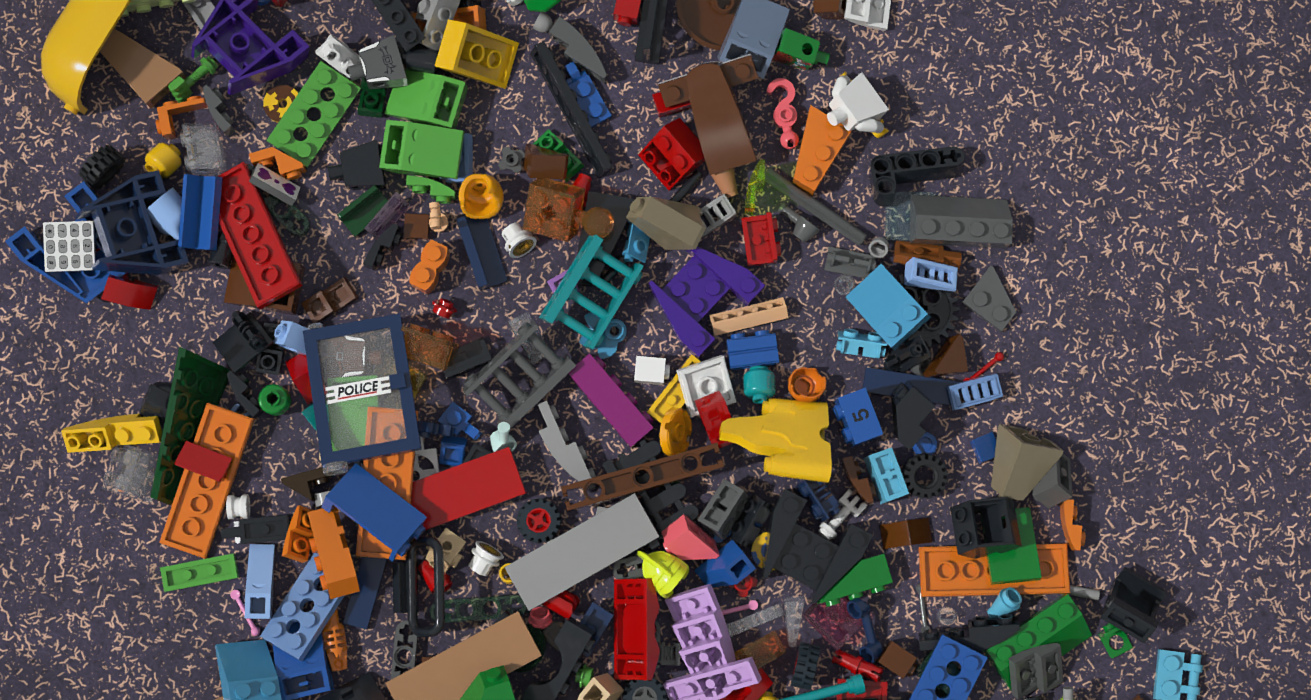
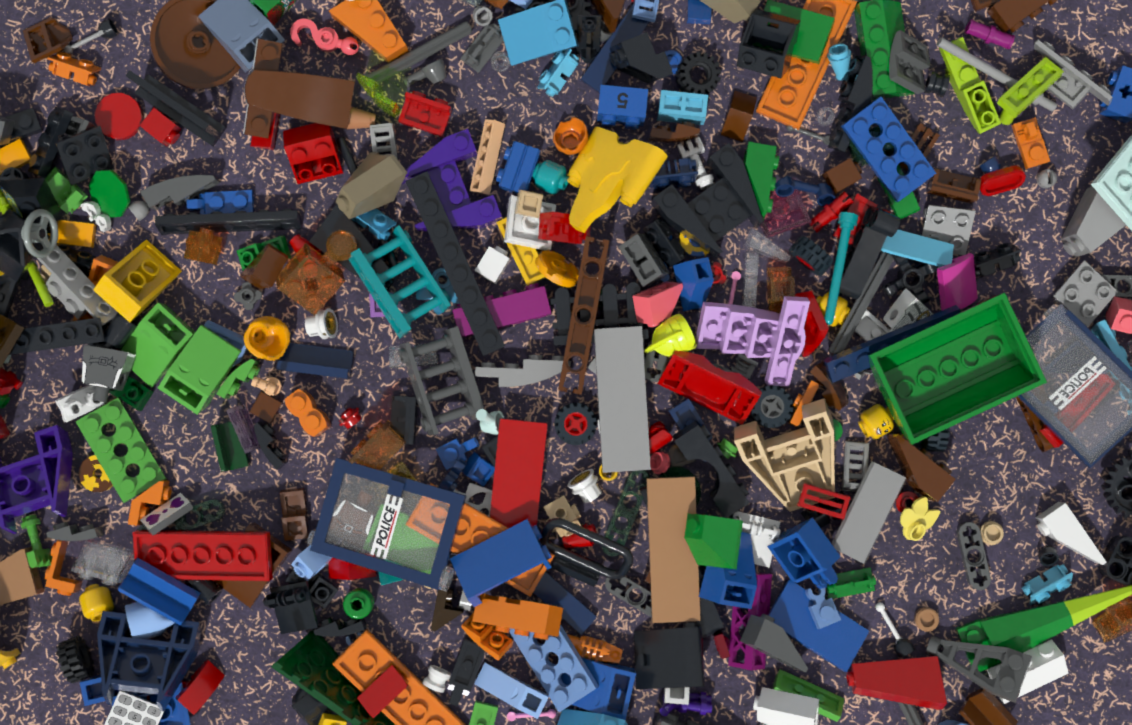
camera: 65 degrees left, 5 degrees up
(360, 167) = (189, 431): black torso -> none
(537, 97) = (203, 246): none -> clear orange brick
(633, 335) = (455, 263): none -> black plate
(722, 375) = (528, 204): none -> tan tile

